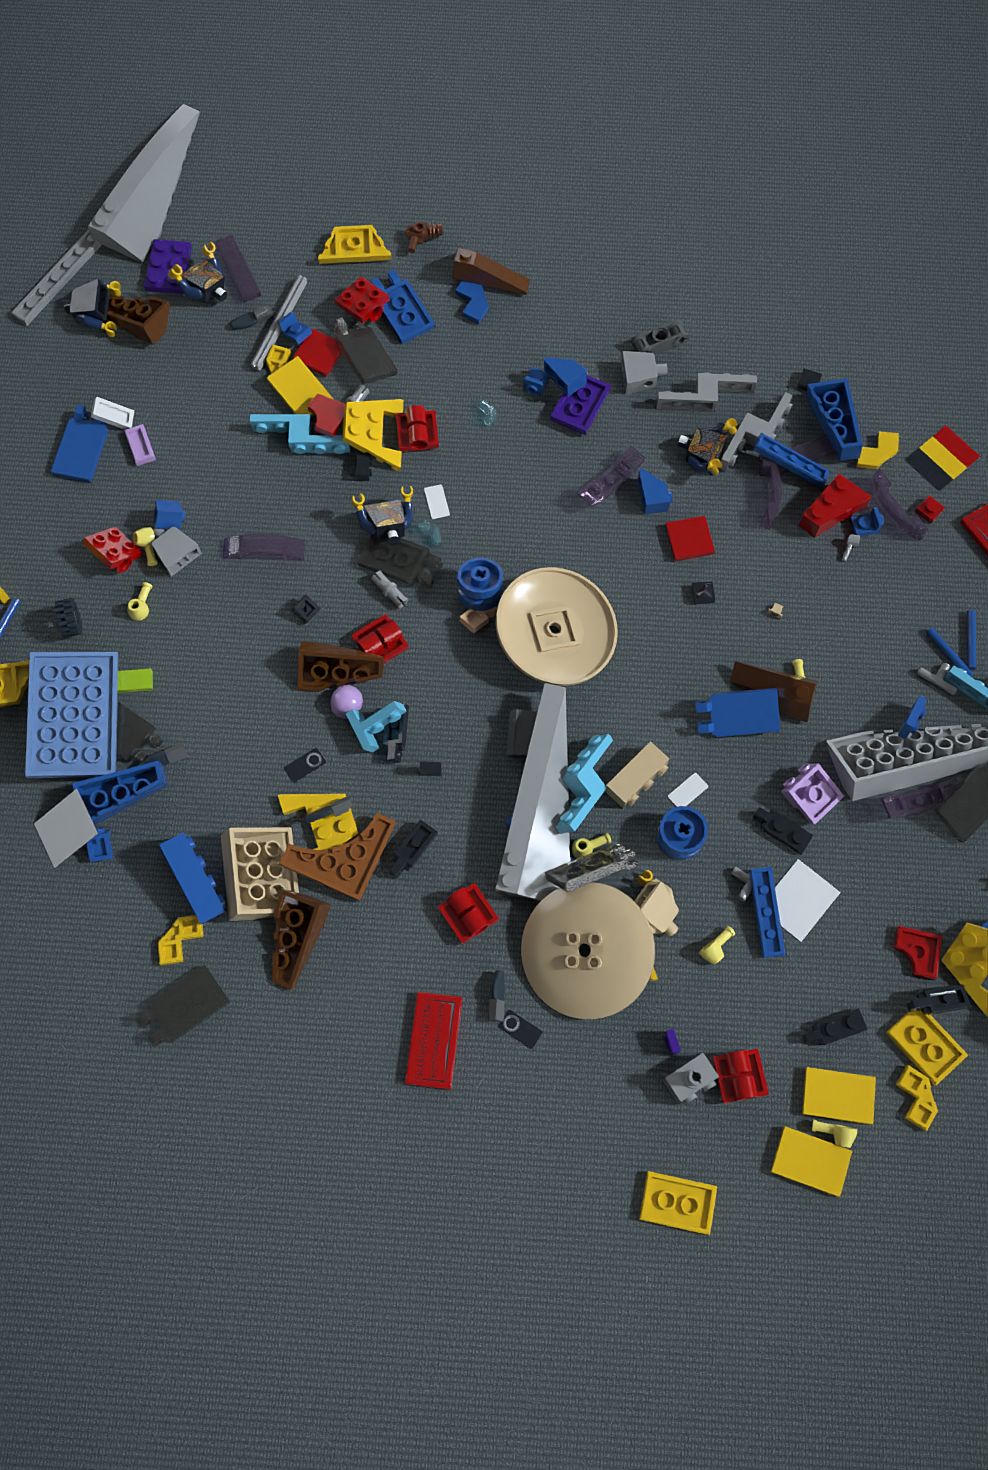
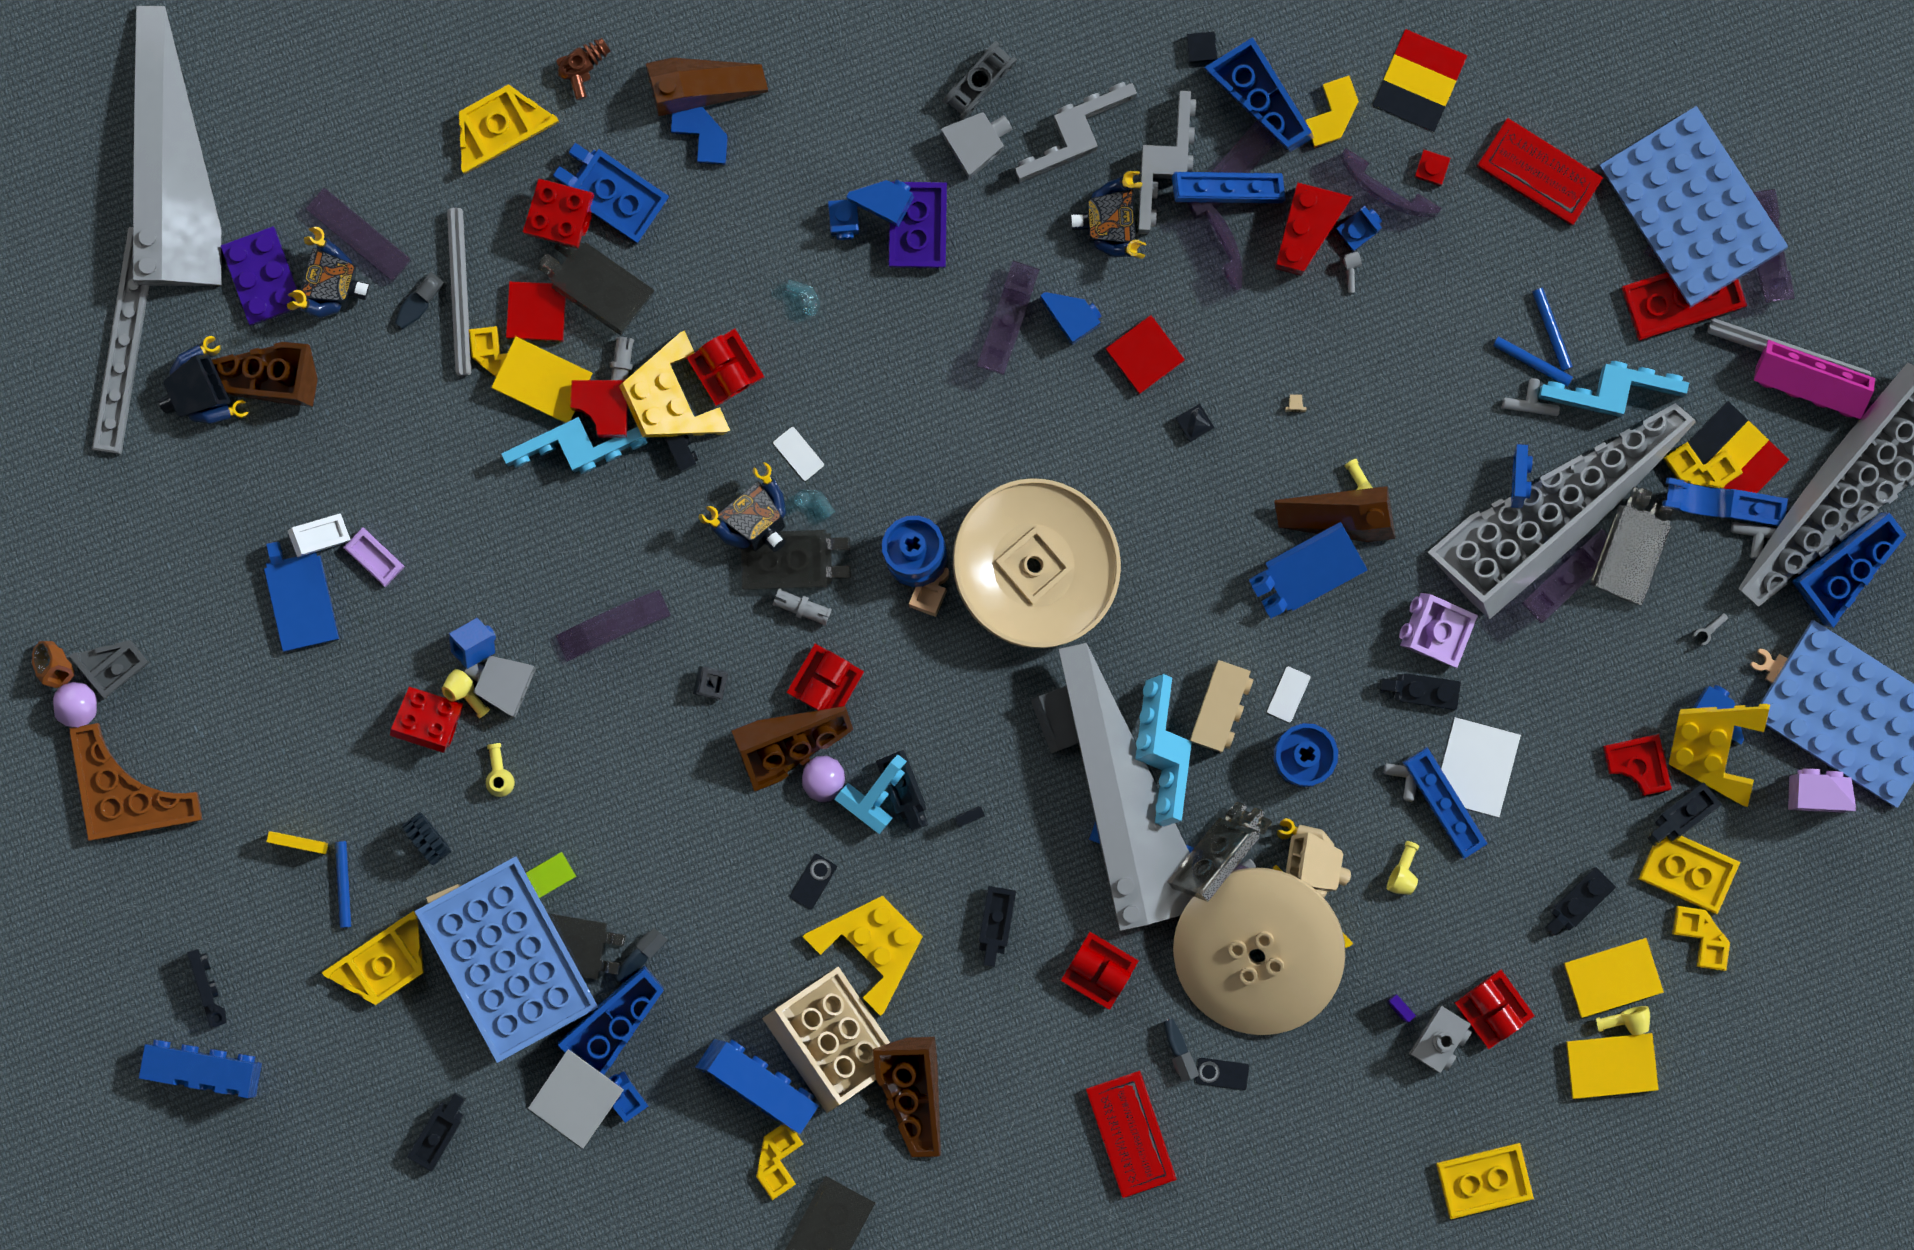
camera: 25 degrees left, 15 degrees up
(293, 329) = (488, 295): blue bracket -> none
(338, 808) = (883, 920): piece -> none
(345, 866) = (931, 983): dark orange plate -> none
(590, 845) = (1202, 819): light yellow bar -> none

